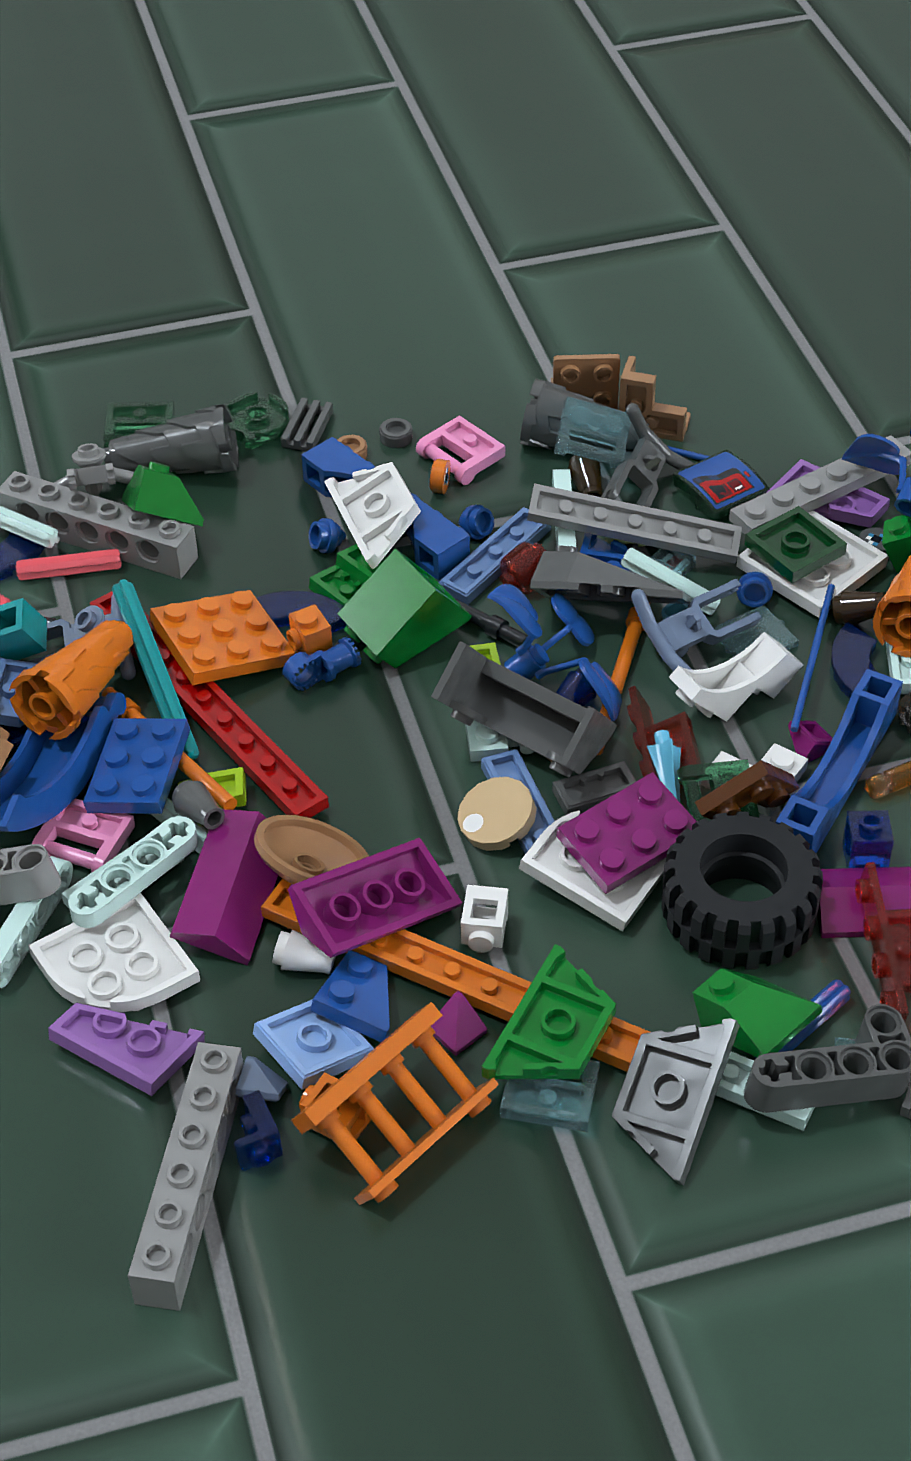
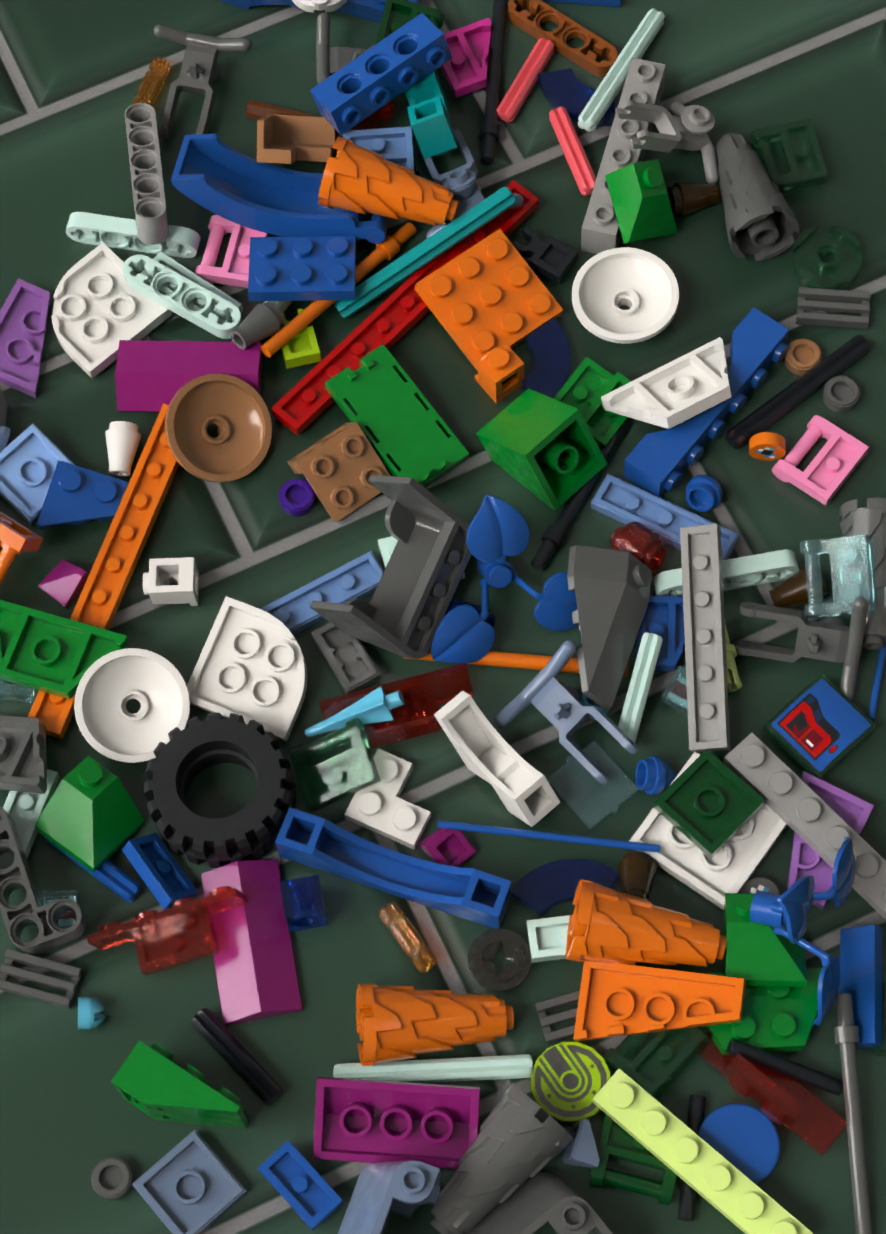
camera: 85 degrees right, 20 degrees up
(184, 588) = (549, 257): none -> black plate
(257, 535) = (628, 279): none -> white dish
(321, 664) = (469, 392): blue connector -> none
(325, 535) = (655, 357): blue plate -> none
(339, 720) = (397, 418): none -> green piece
(370, 765) = (340, 469): none -> medium nougat bracket
(372, 898) = (168, 486): magenta slope -> none
(384, 451) = (797, 391): none -> black axle
(401, 815) = (297, 497): none -> dark purple tile
(496, 813) = (298, 573): tan tile -> none
(626, 832) = (270, 682): magenta plate -> none
(634, 955) = (108, 688): none -> white dish
(757, 784) = (313, 779): reddish brown plate -> none
(832, 955) = (159, 870): none -> blue plate

